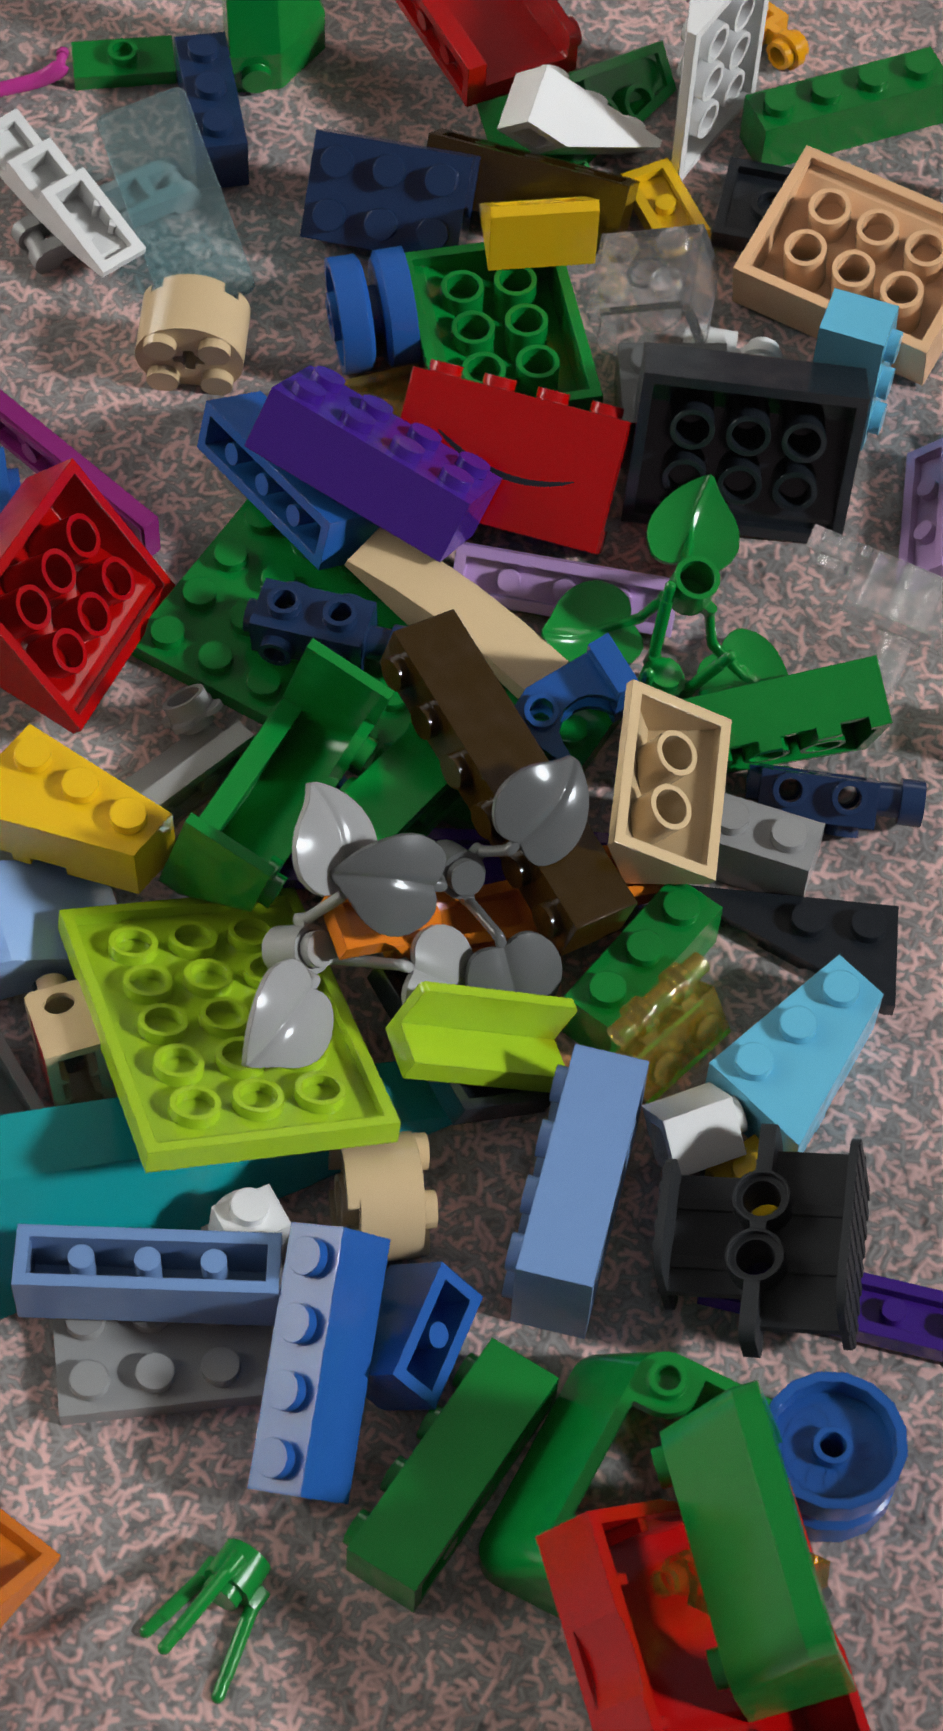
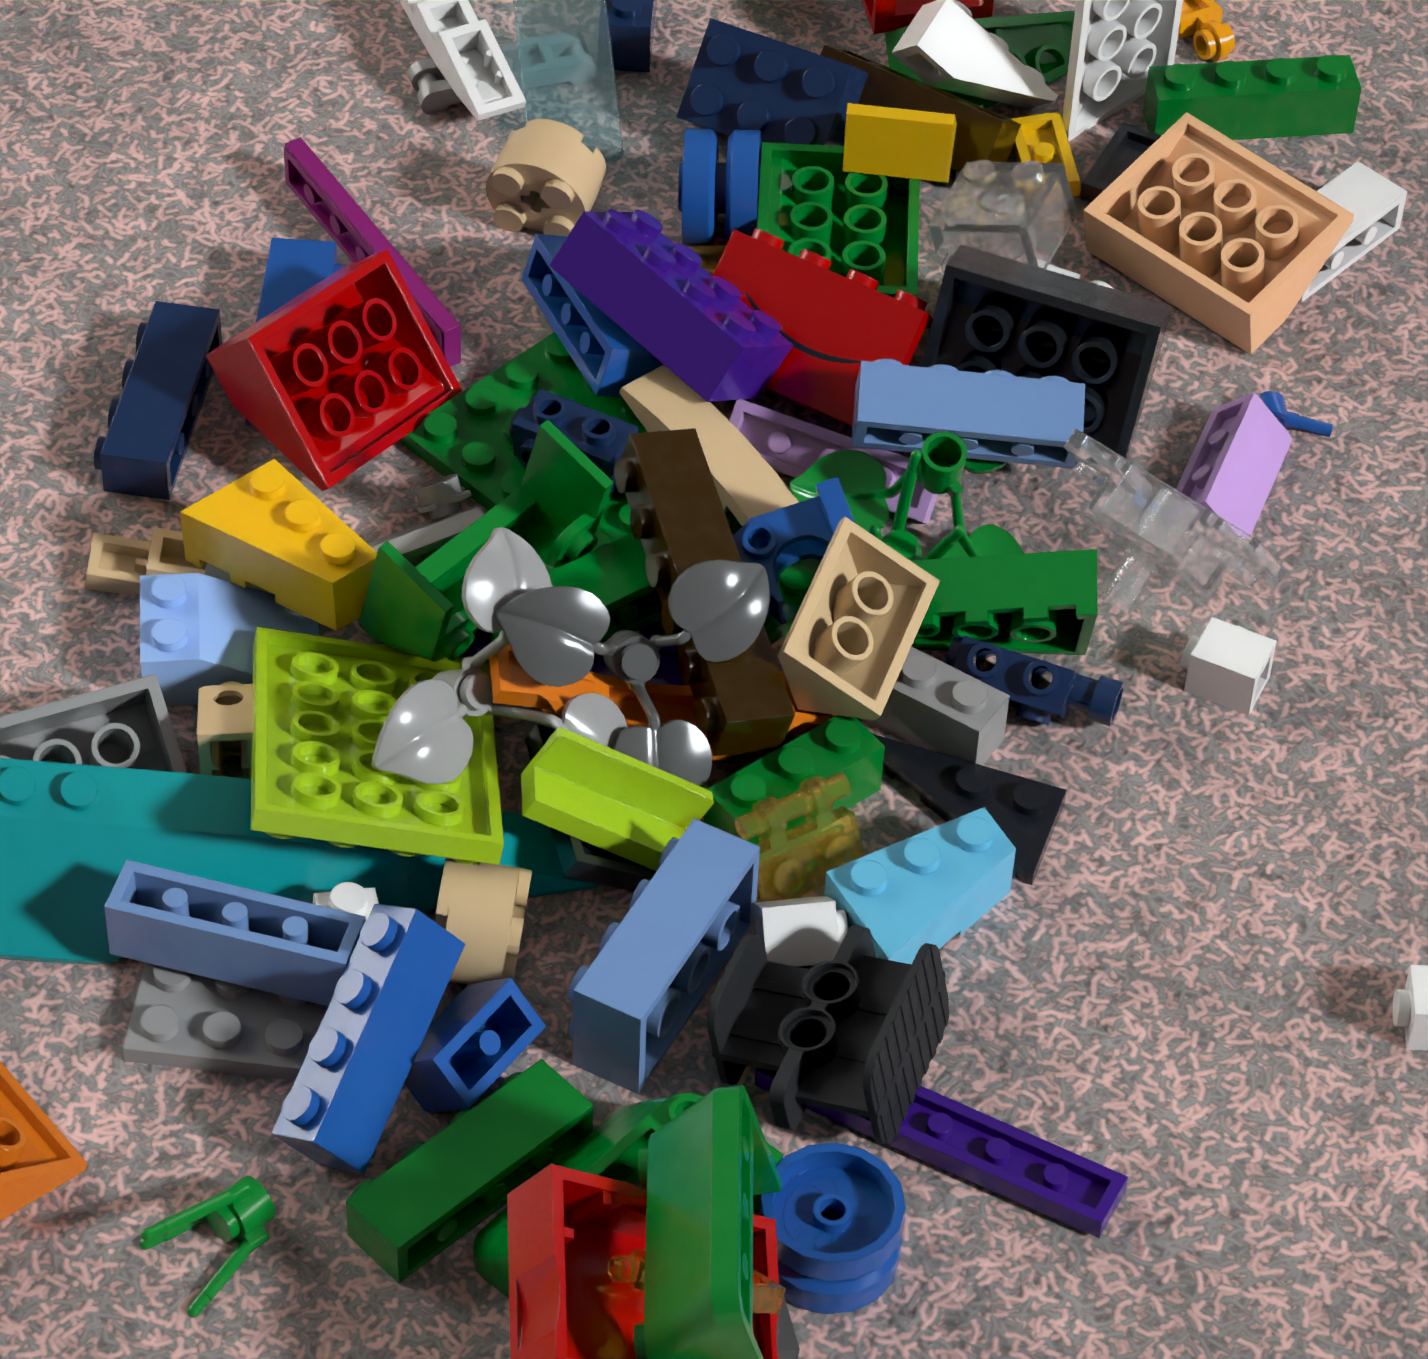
camera: 15 degrees right, 10 degrees down
(704, 517) = (990, 411): none -> medium blue brick
(862, 335) = (1187, 278): medium azure wedge -> none

